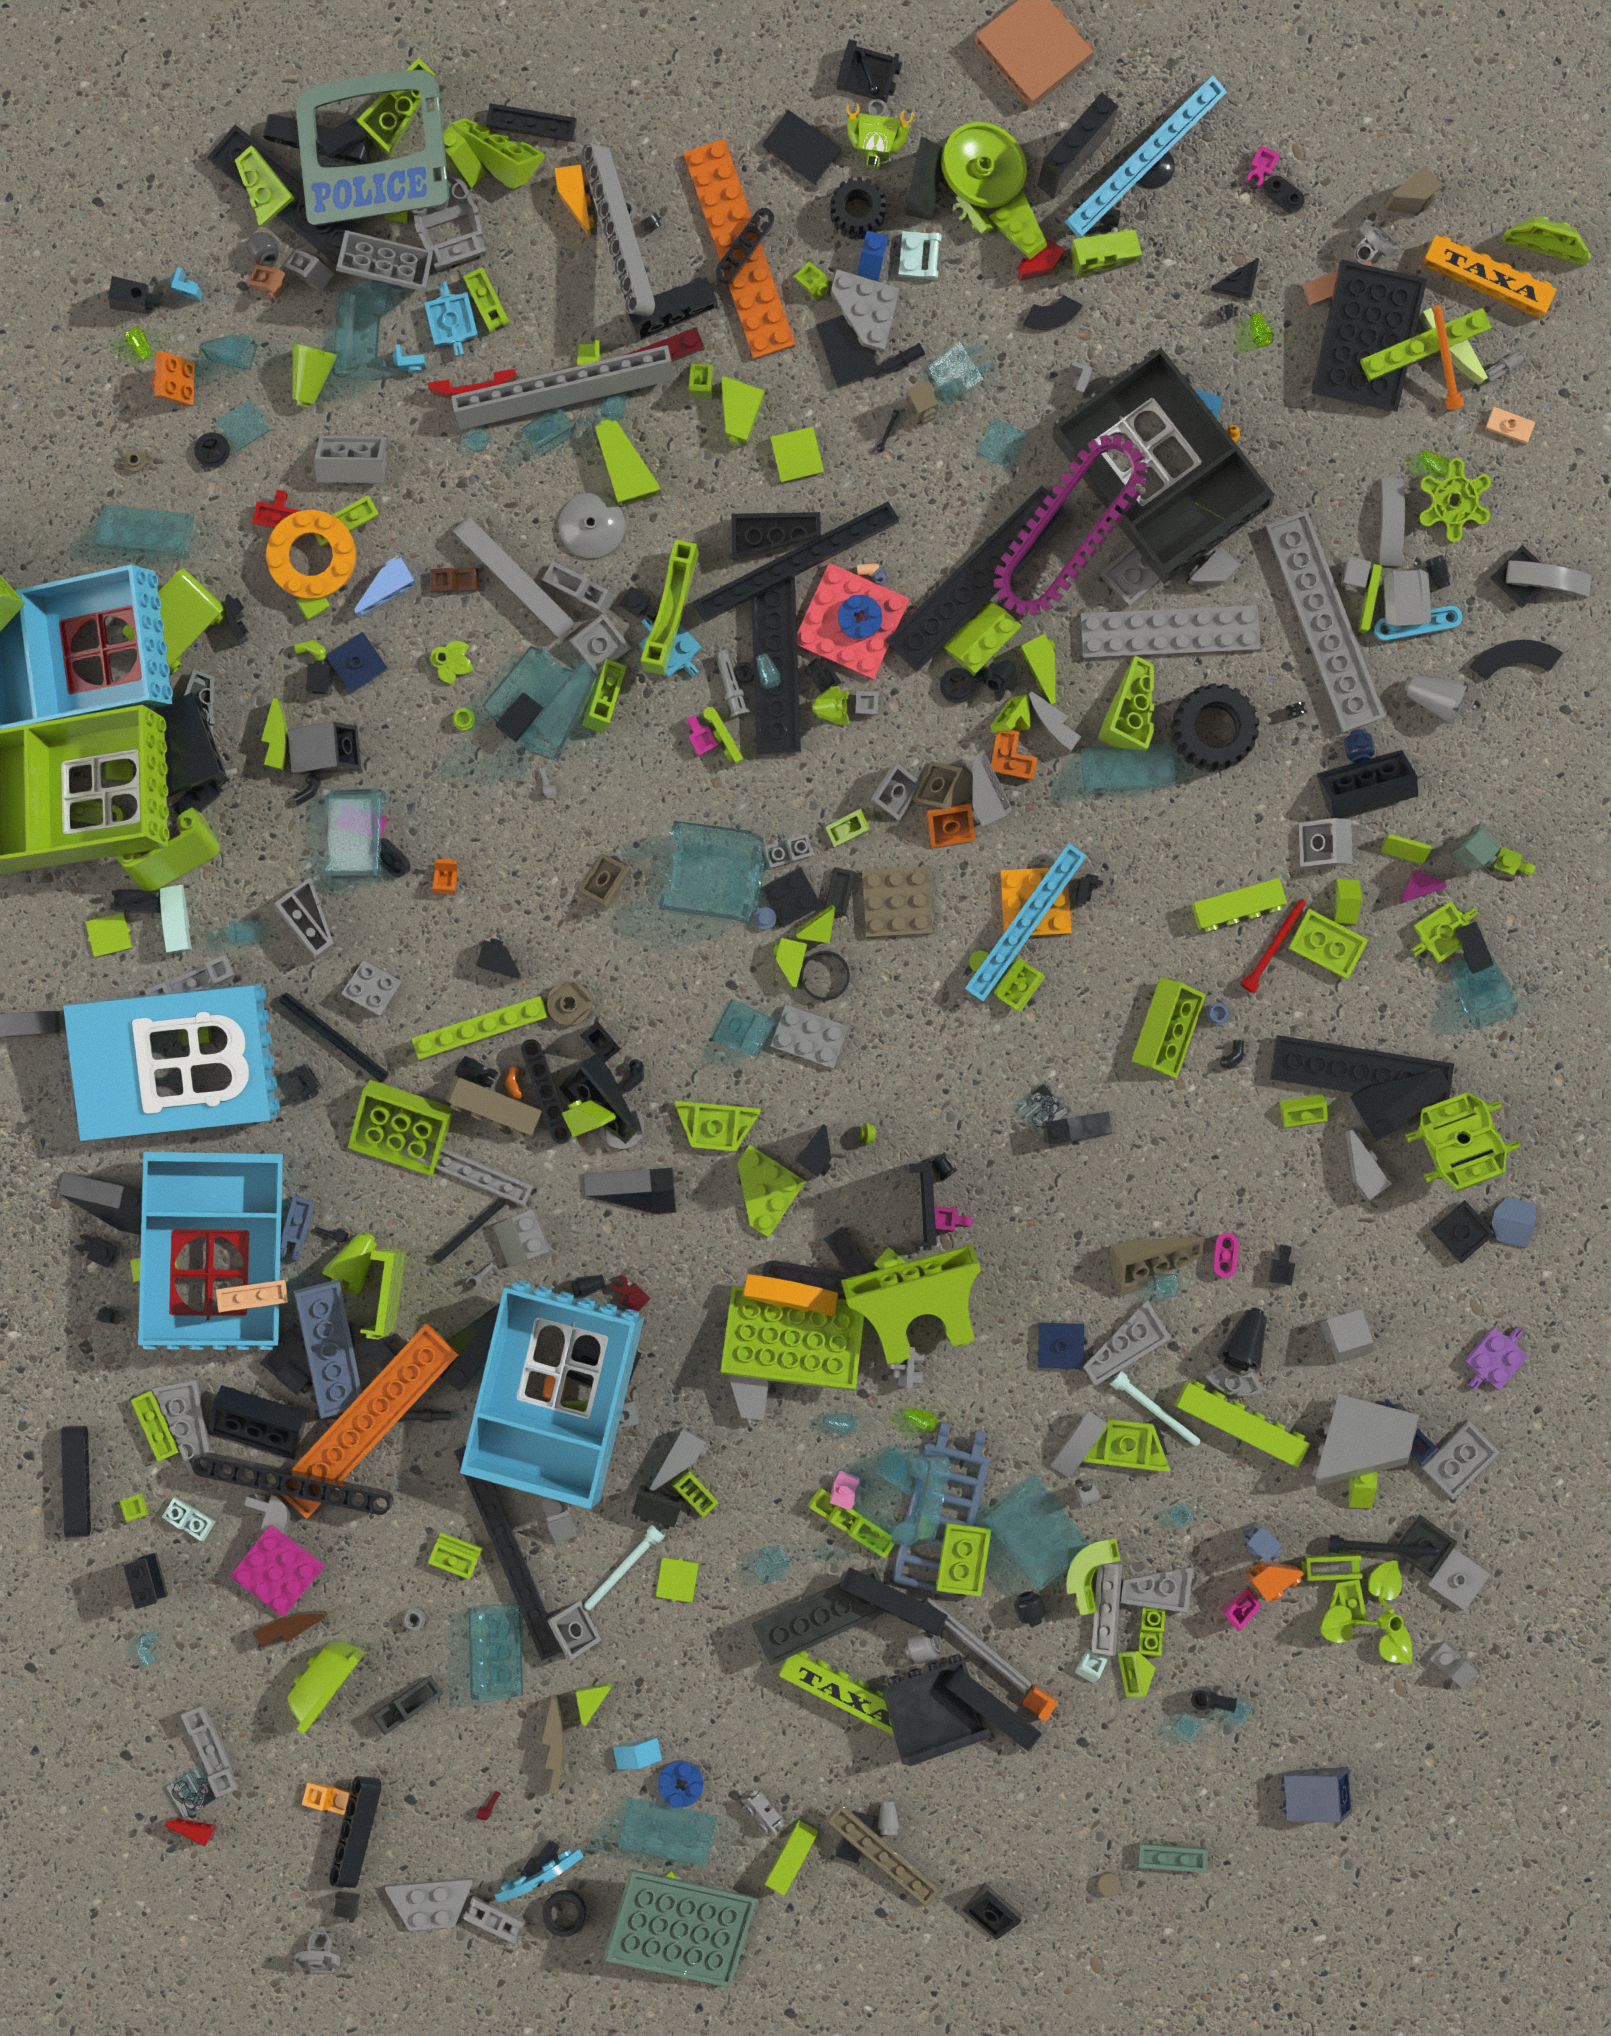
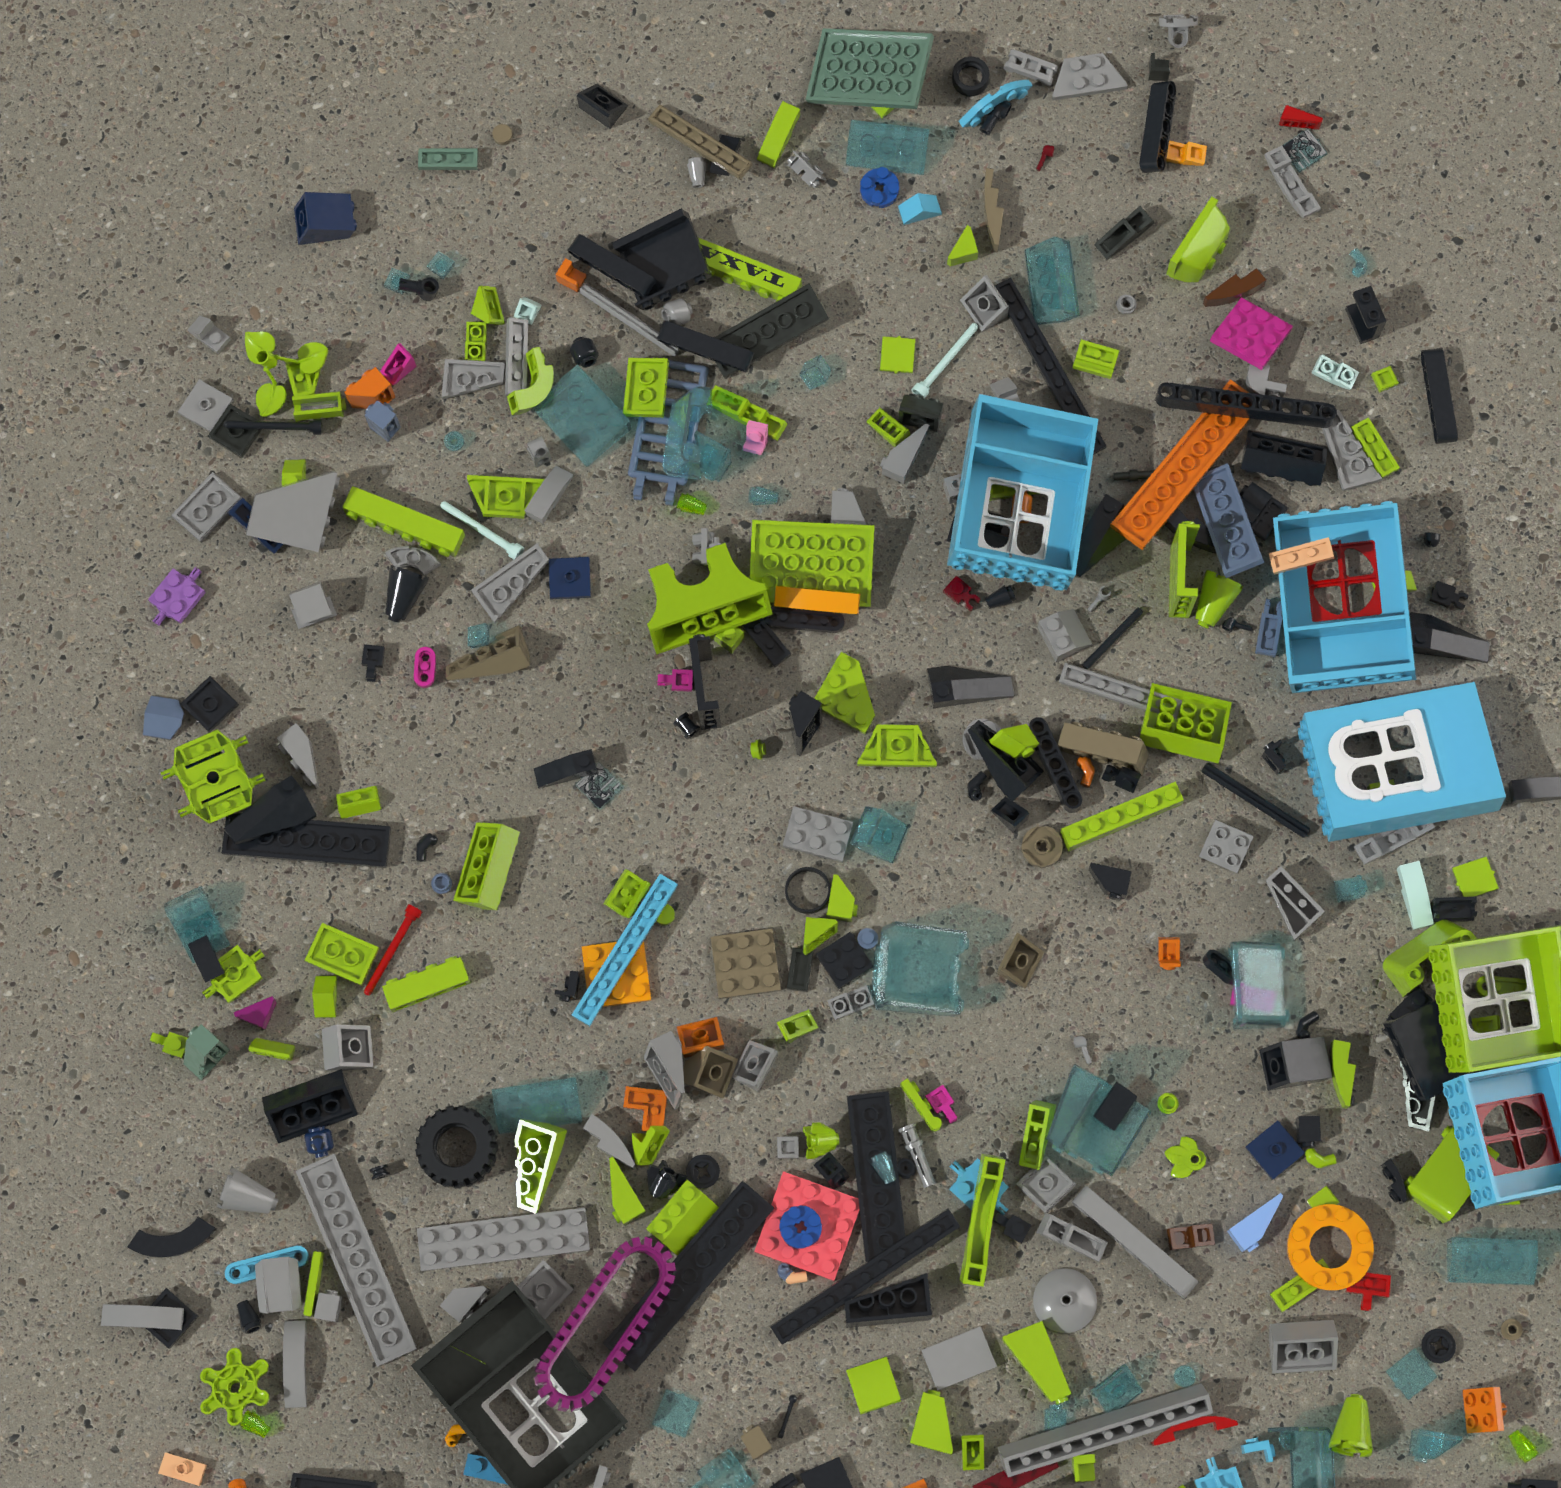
camera: 175 degrees left, 10 degrees down
(706, 475) = (958, 1358): none -> light grey tile

